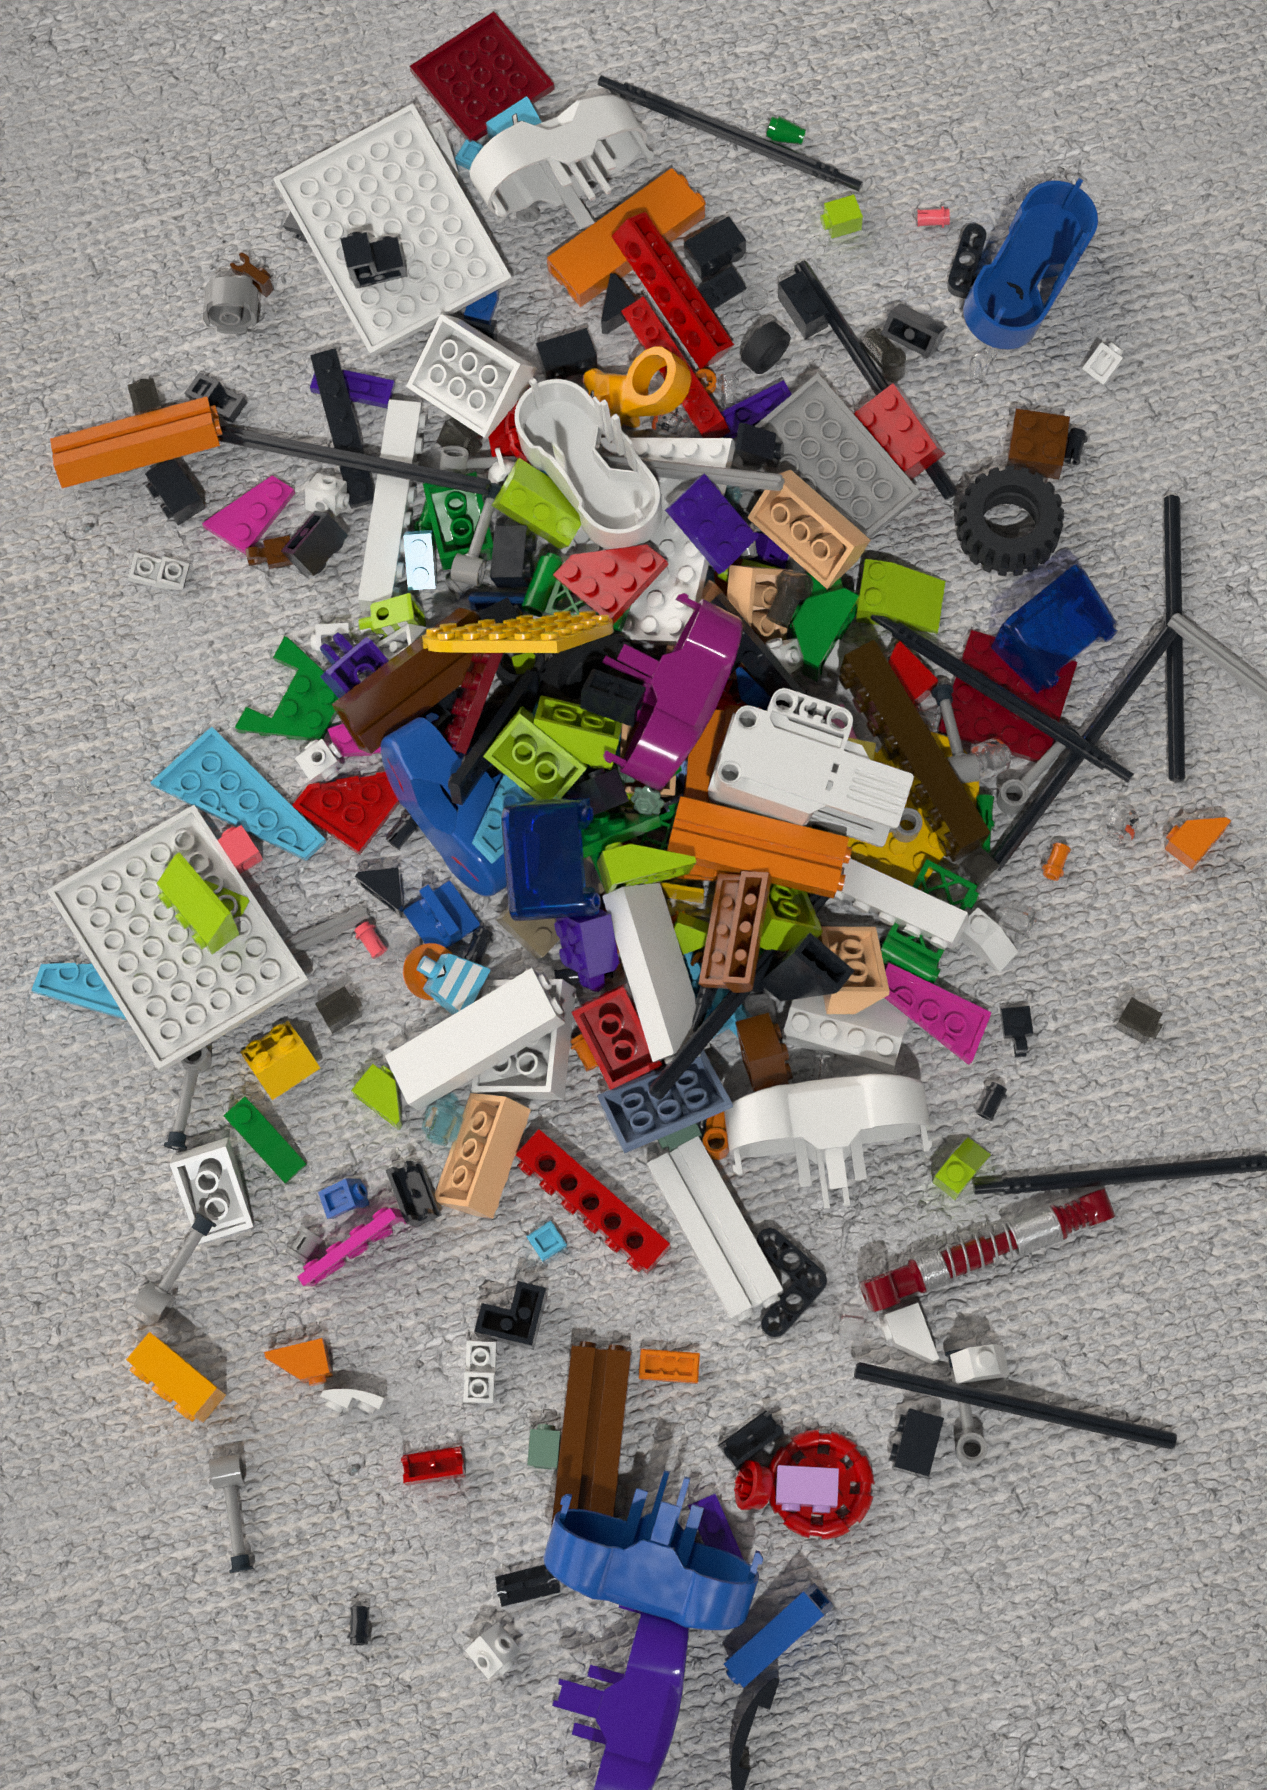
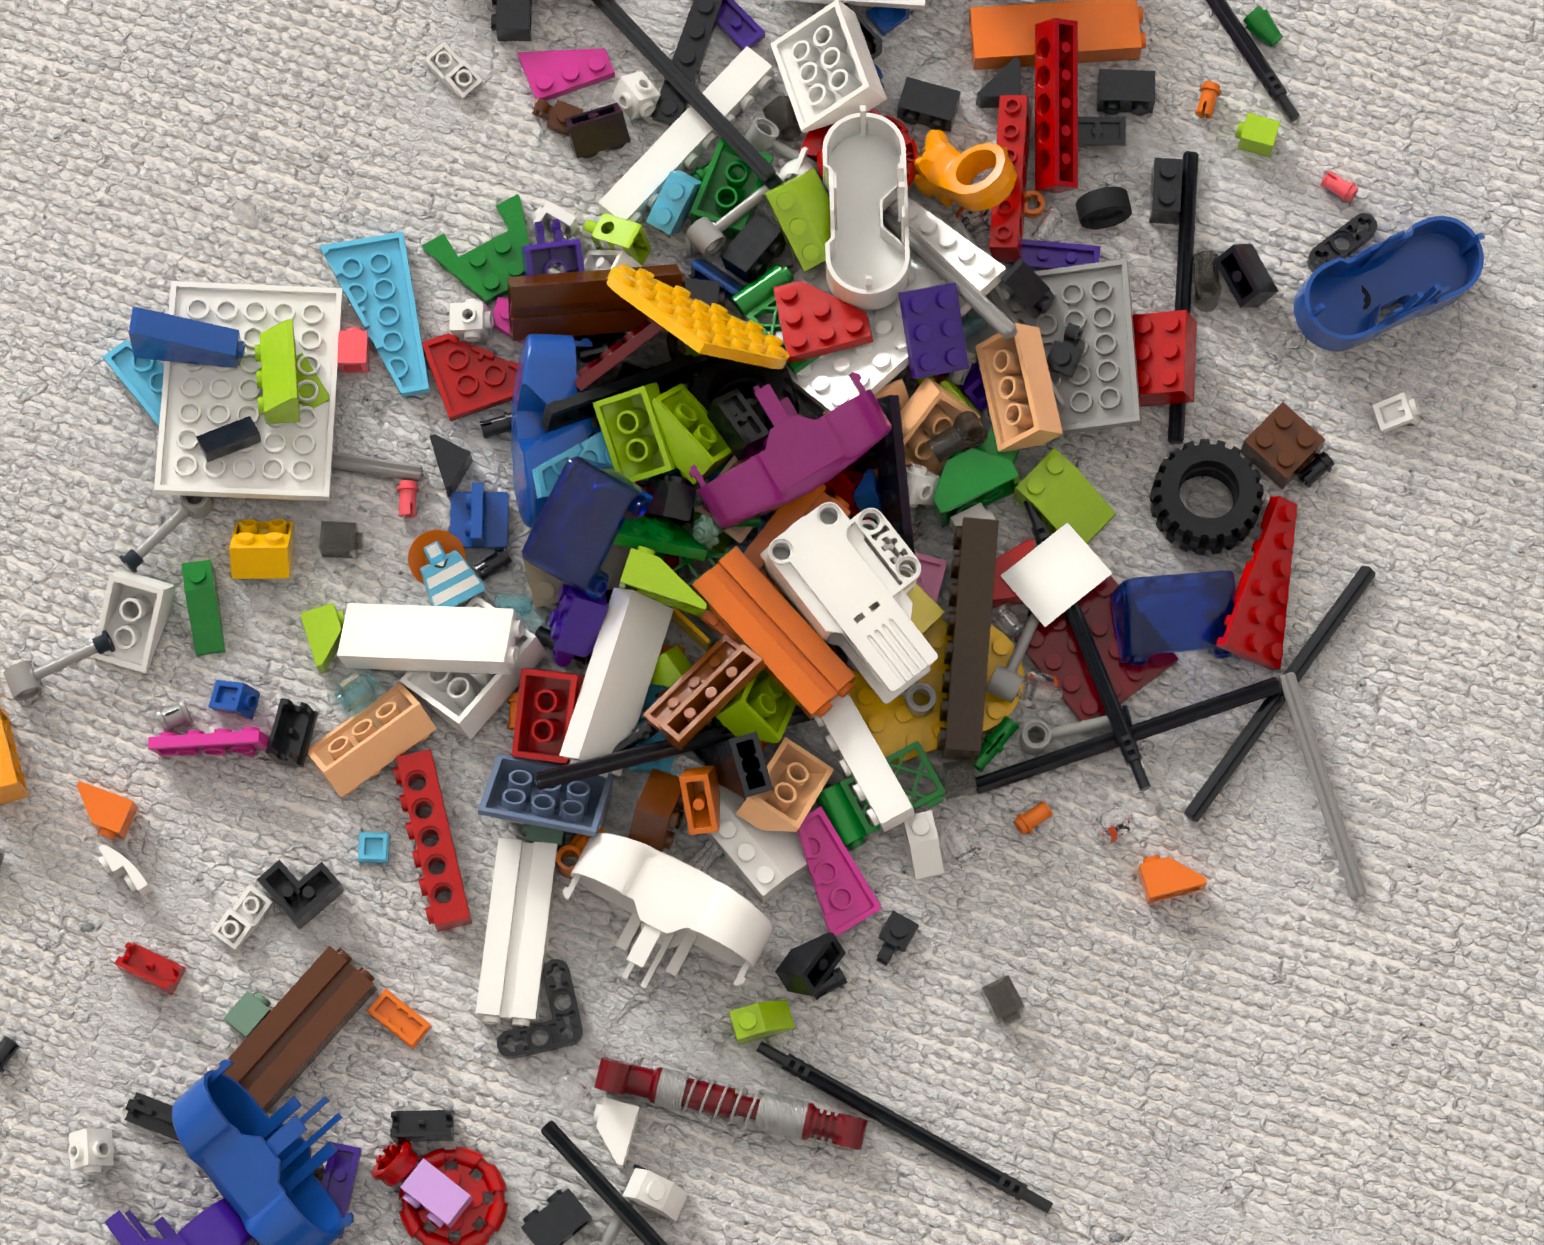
camera: 30 degrees right, 0 degrees up
(96, 929) = (183, 340): none -> blue slope
(191, 986) = (229, 439): none -> black slope
(518, 966) = (520, 604): none -> clear light blue pin
(781, 210) = (1209, 94): none -> orange pin
(793, 1020) = (701, 799): none -> orange slope
(823, 479) = (1066, 356): none -> black plate
(939, 656) = (1056, 574): none -> white sticker
(969, 1095) = (810, 964): none -> black slope
(1106, 564) = (1261, 598): none -> red wing

